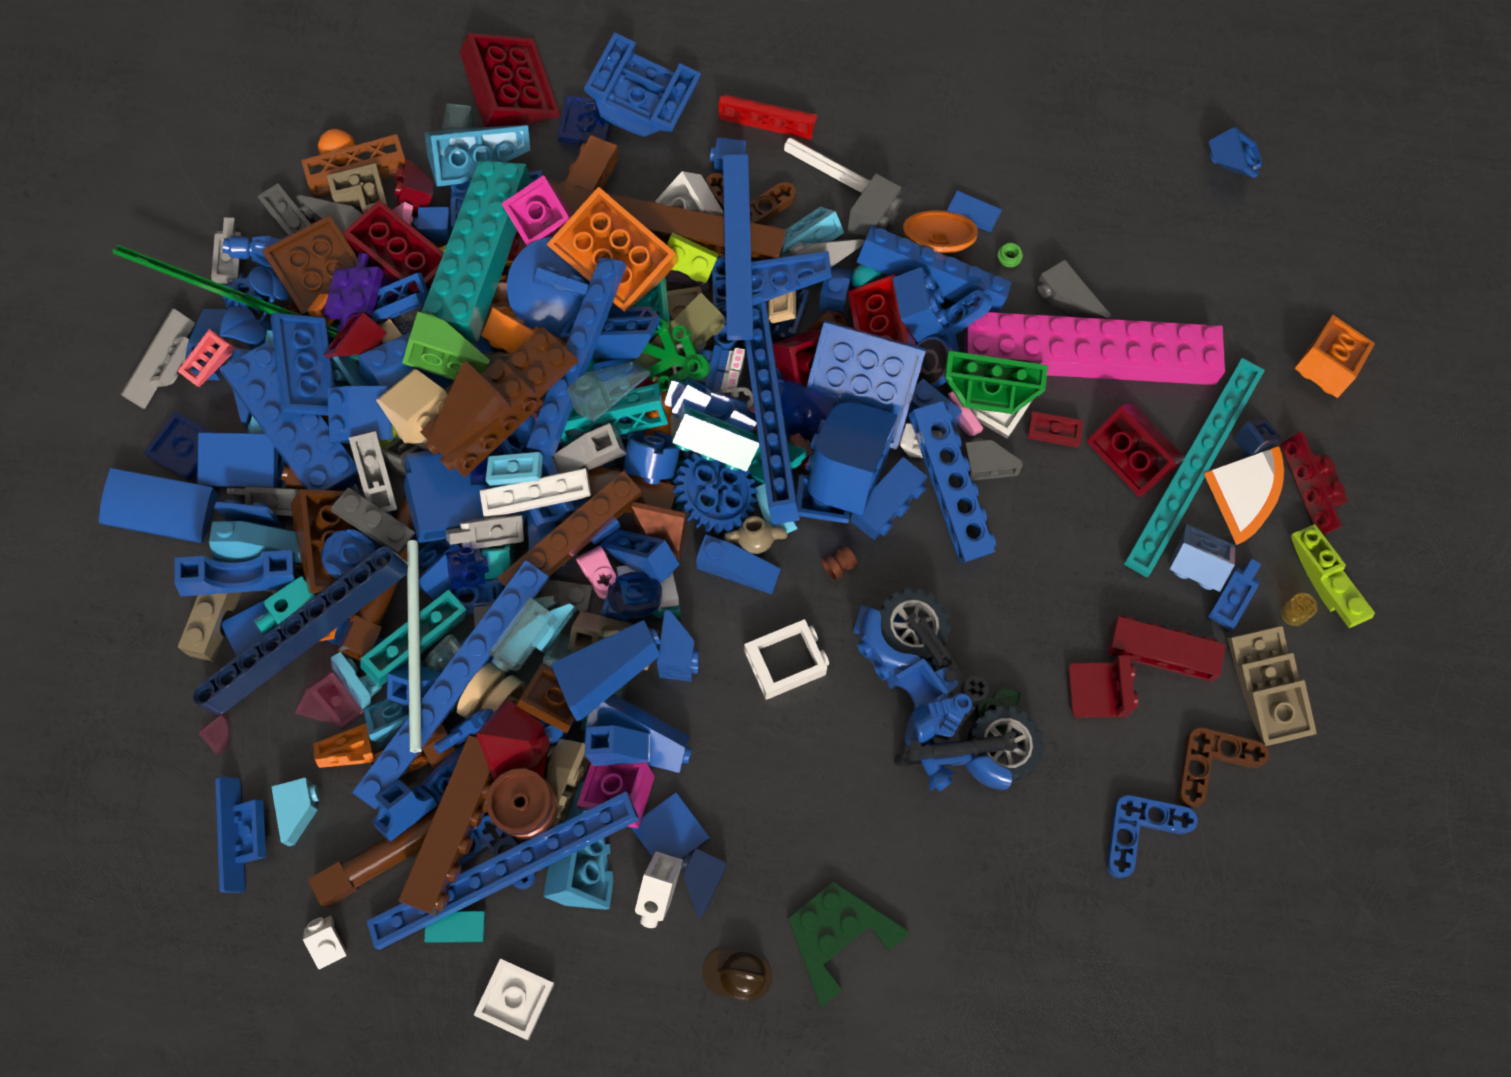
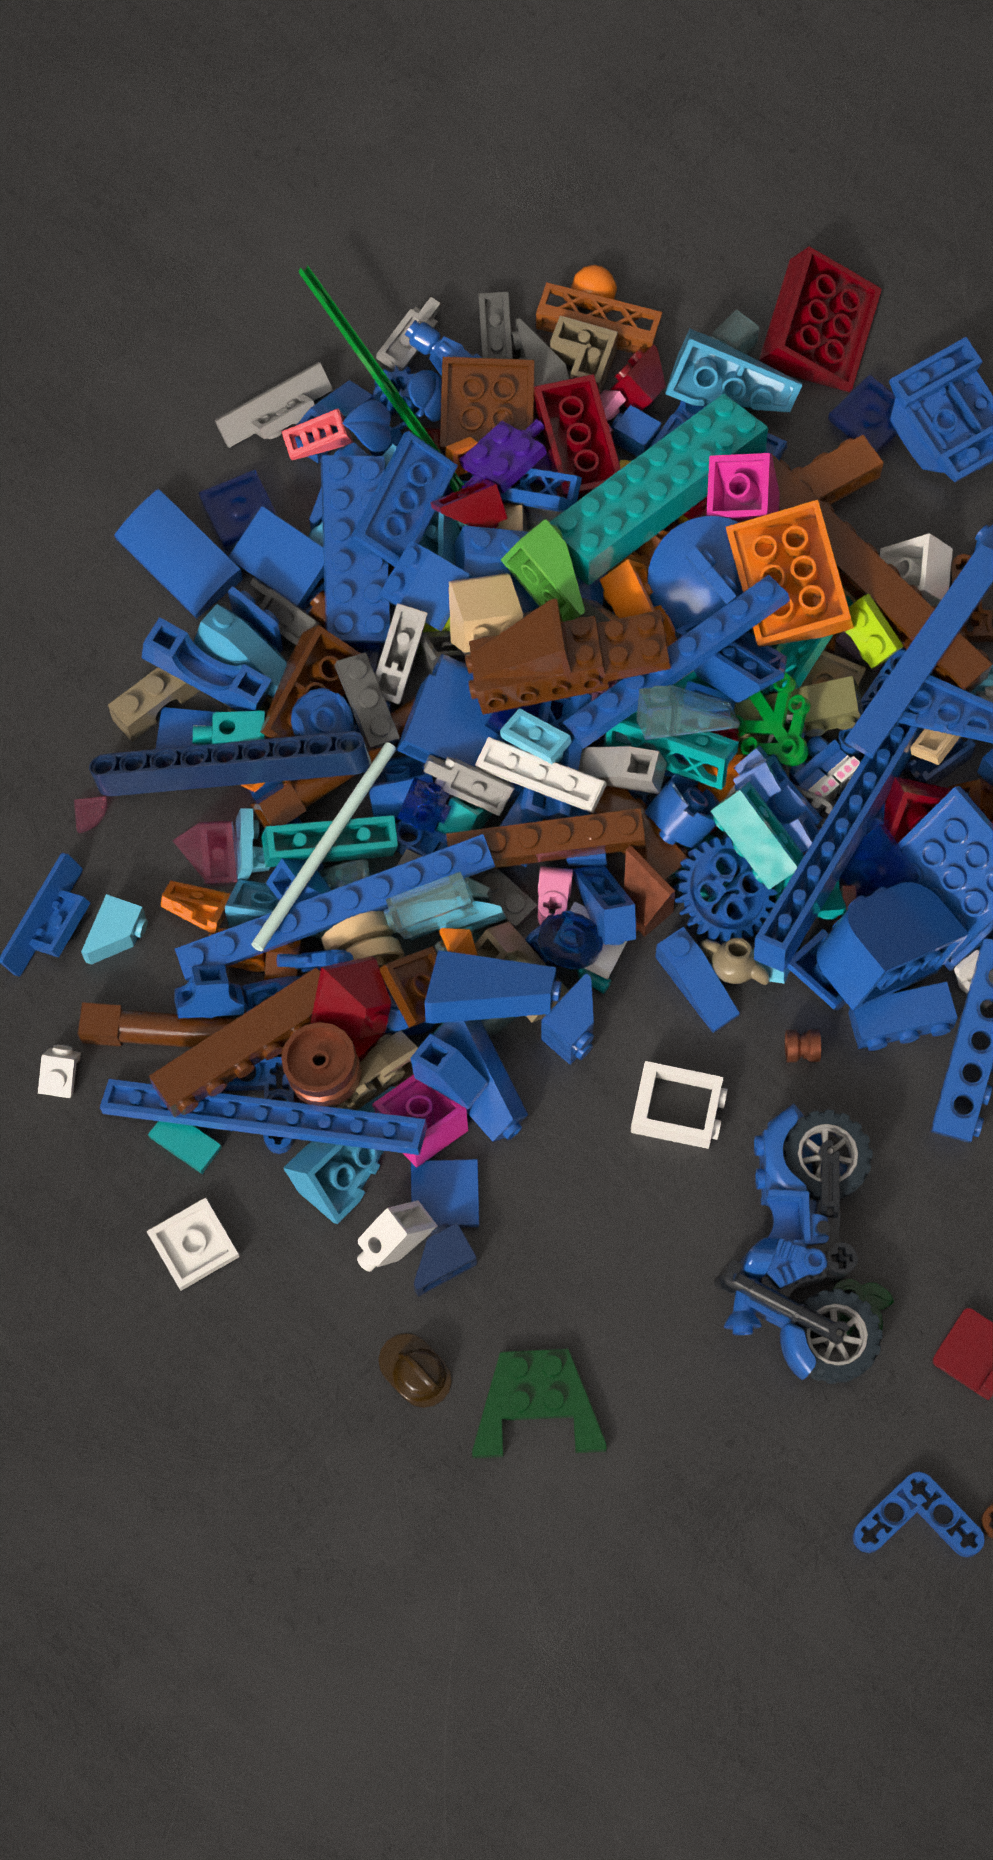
camera: 40 degrees right, 0 degrees up
(558, 648) = (458, 940): none -> orange slope

